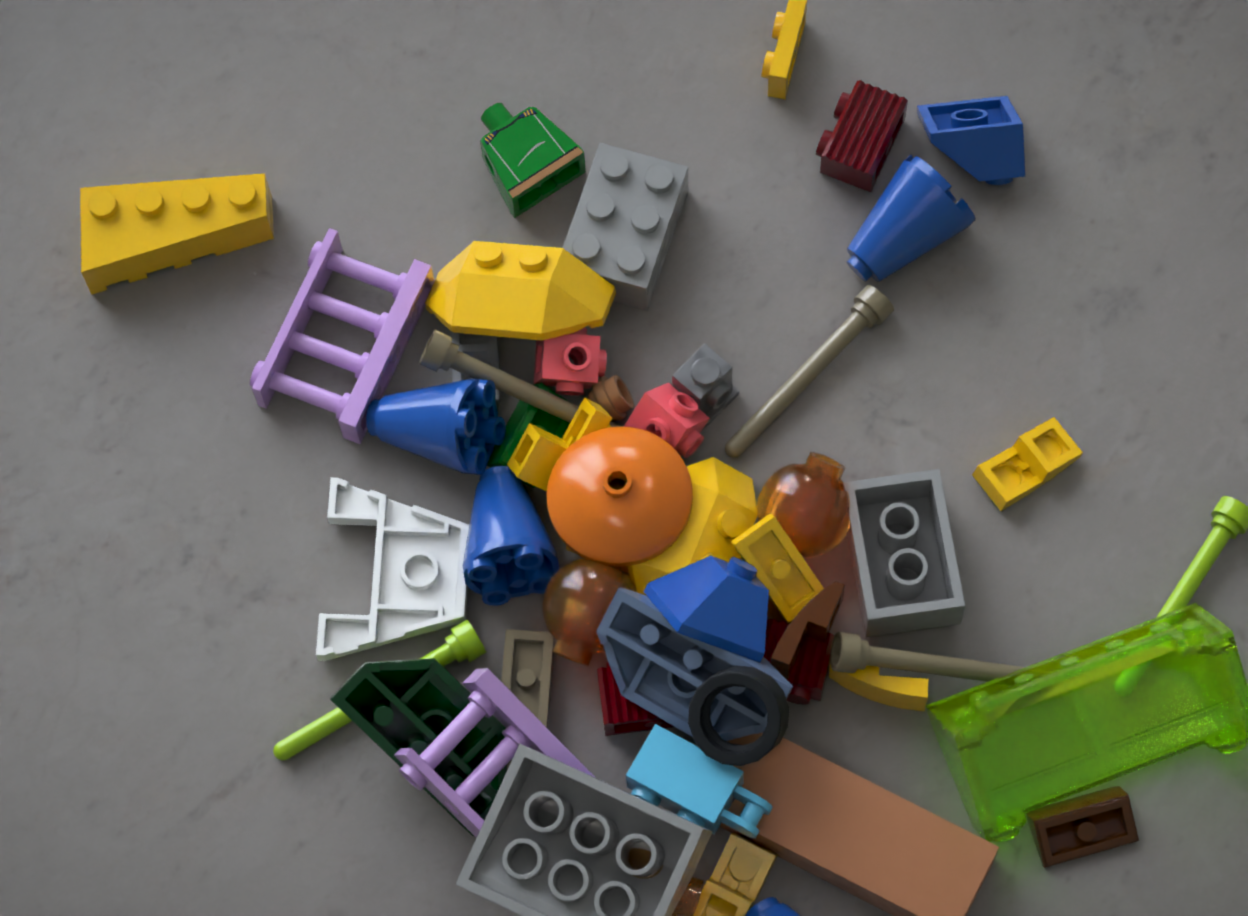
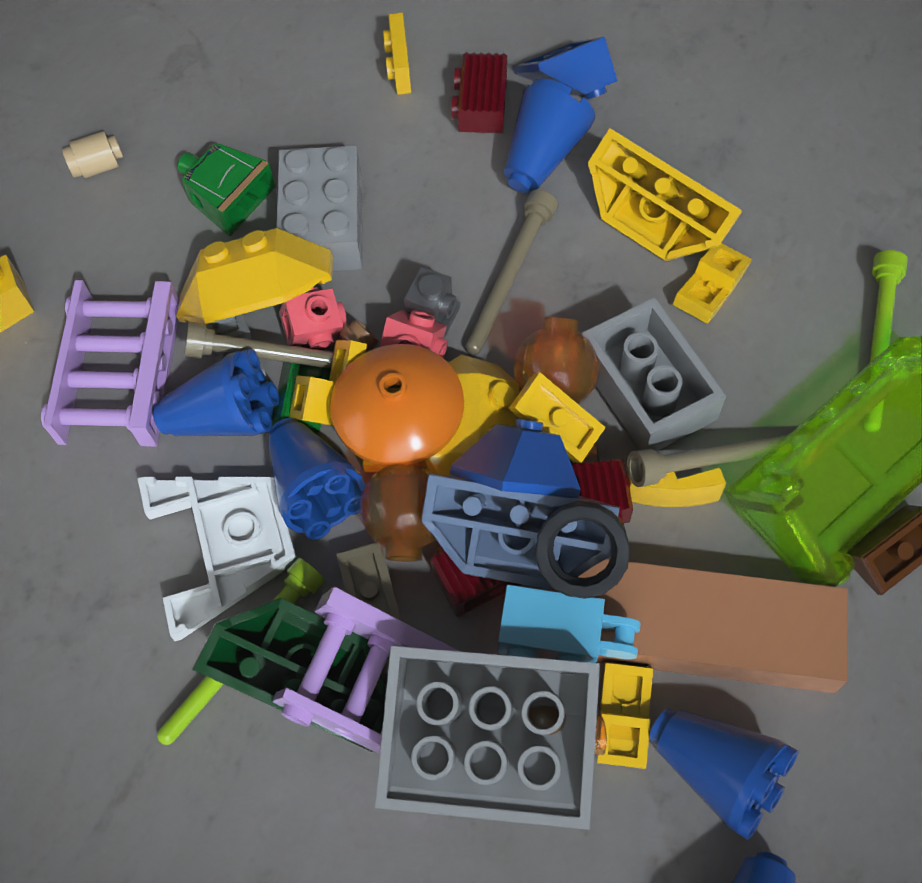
camera: 20 degrees left, 5 degrees down
(391, 66) = (92, 155): none -> tan brick
(812, 621) = (605, 454): reddish brown slope -> none
(1003, 346) = (656, 201): none -> yellow wedge

